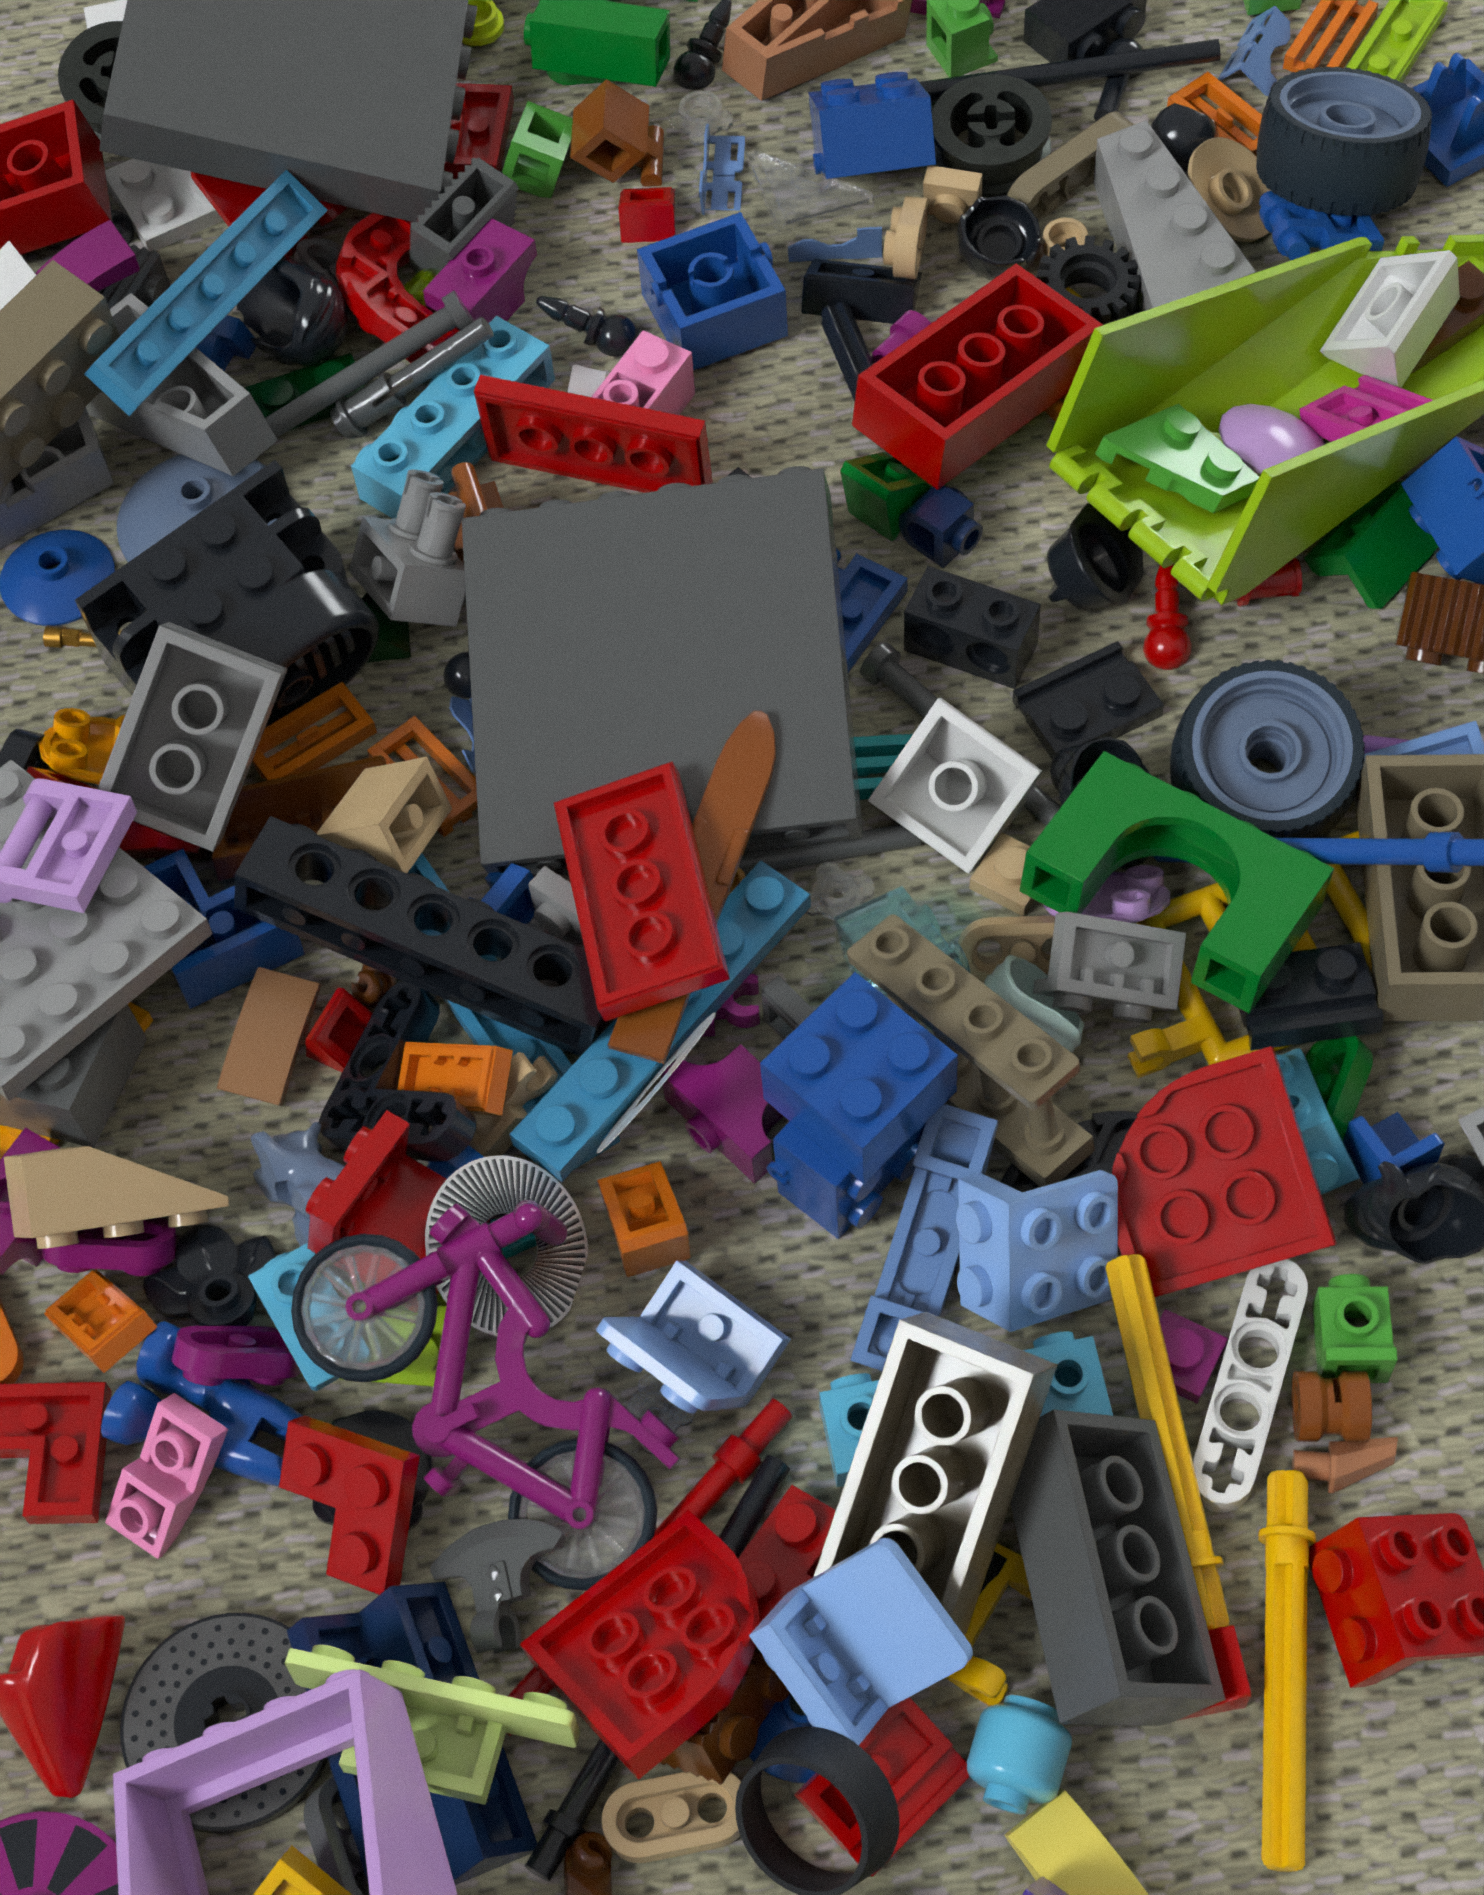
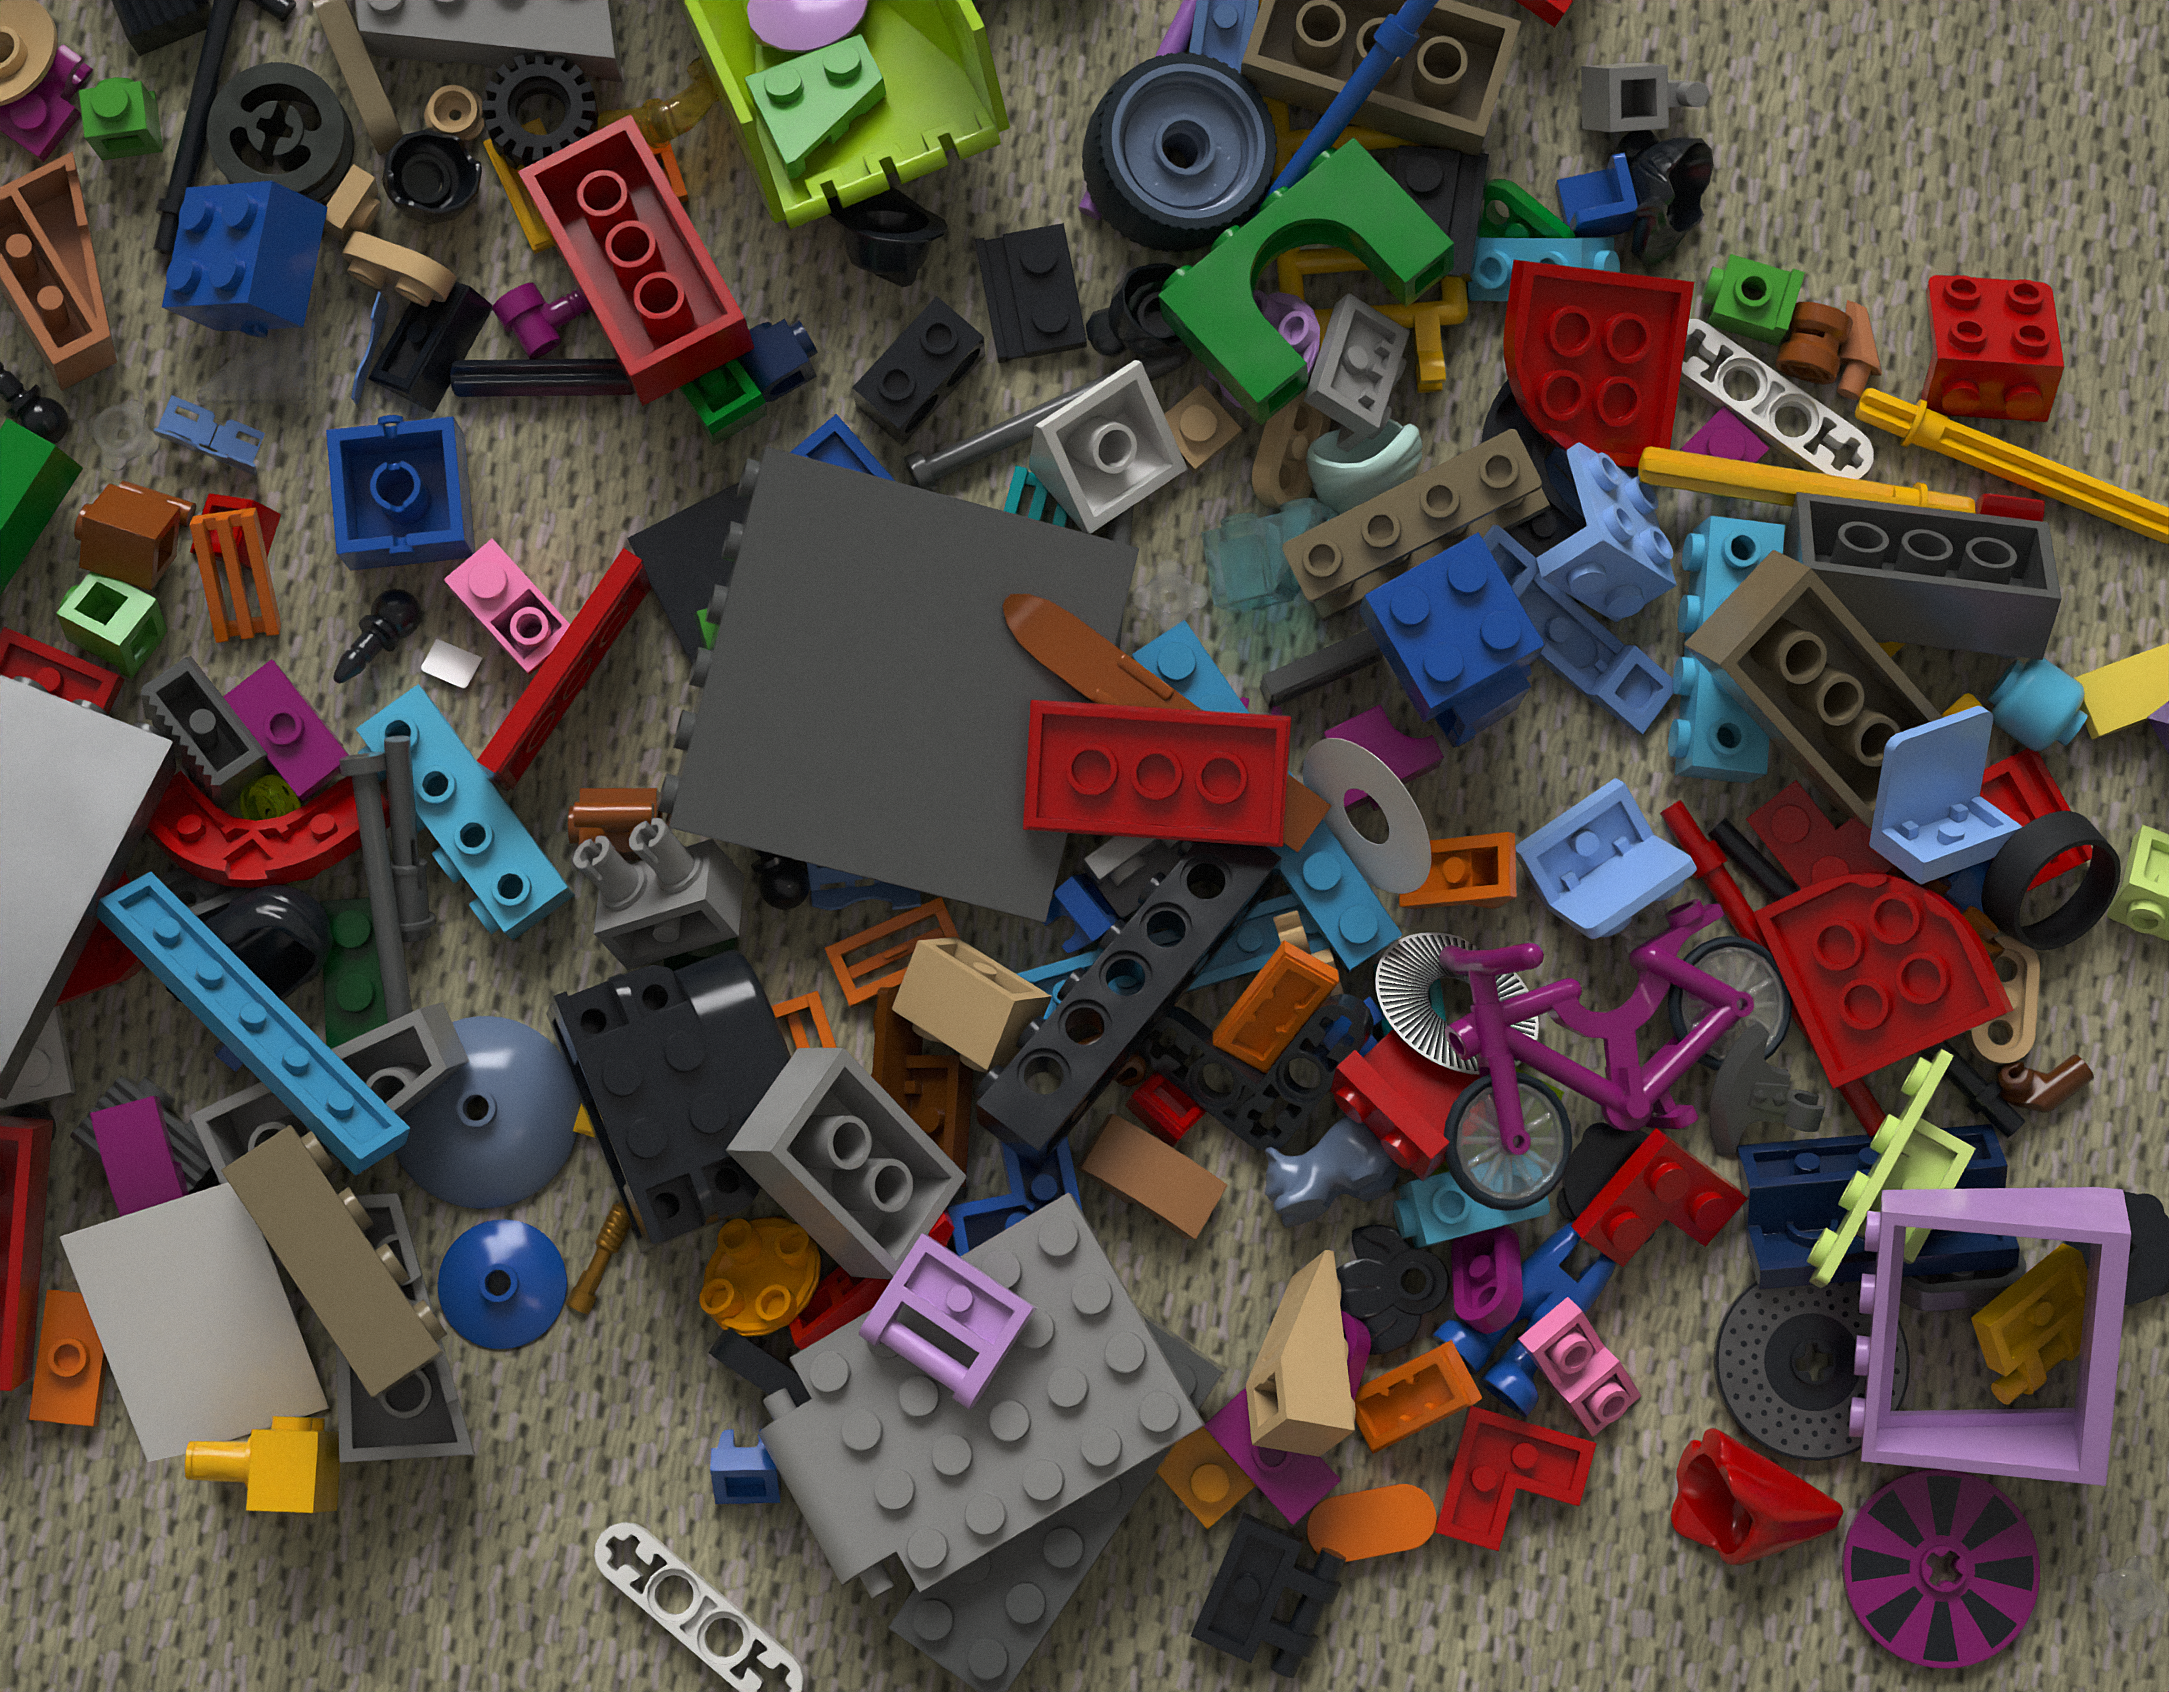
camera: 80 degrees left, 20 degrees up
(599, 203) = (245, 625): none -> orange tile
(1167, 642) = (986, 193): red bar -> none

